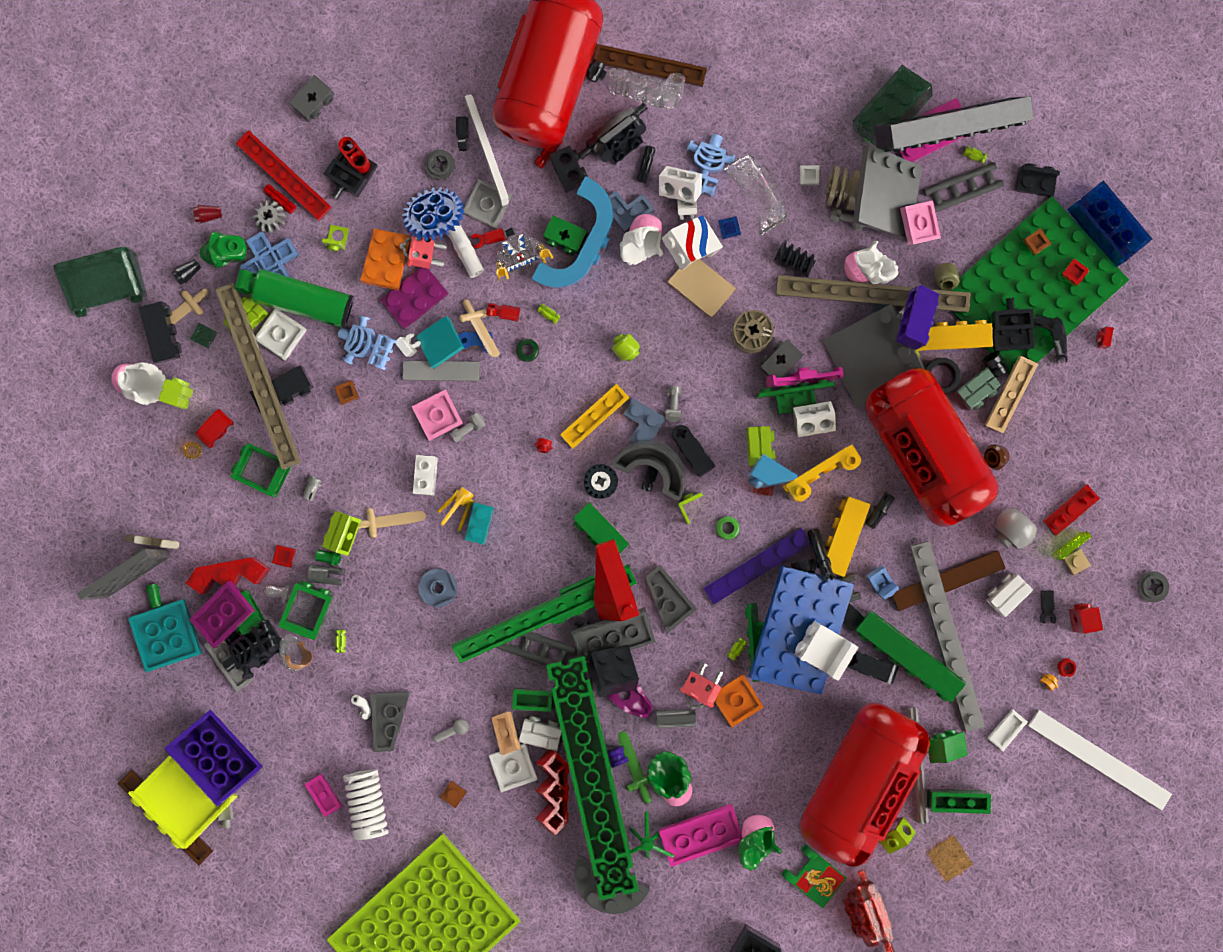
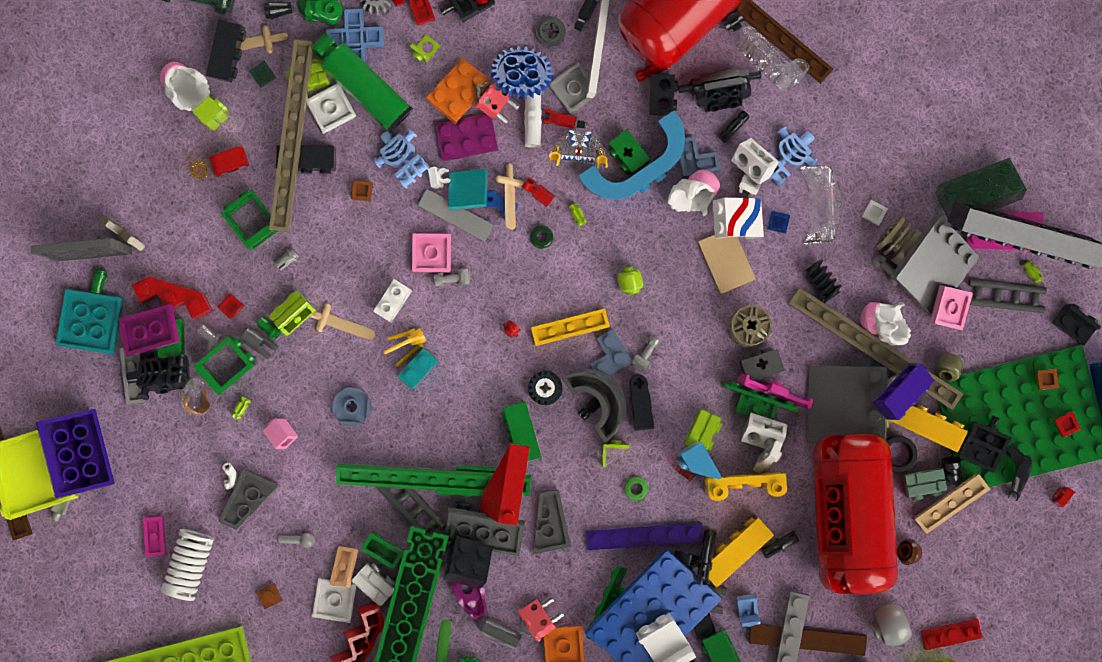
camera: 20 degrees right, 0 degrees up
(387, 645) = (280, 433): none -> bright pink brick
(617, 756) = (431, 640): dark purple wheel -> none
(737, 648) = (587, 600): lime piece -> none
(828, 439) = (767, 457): none -> white plate

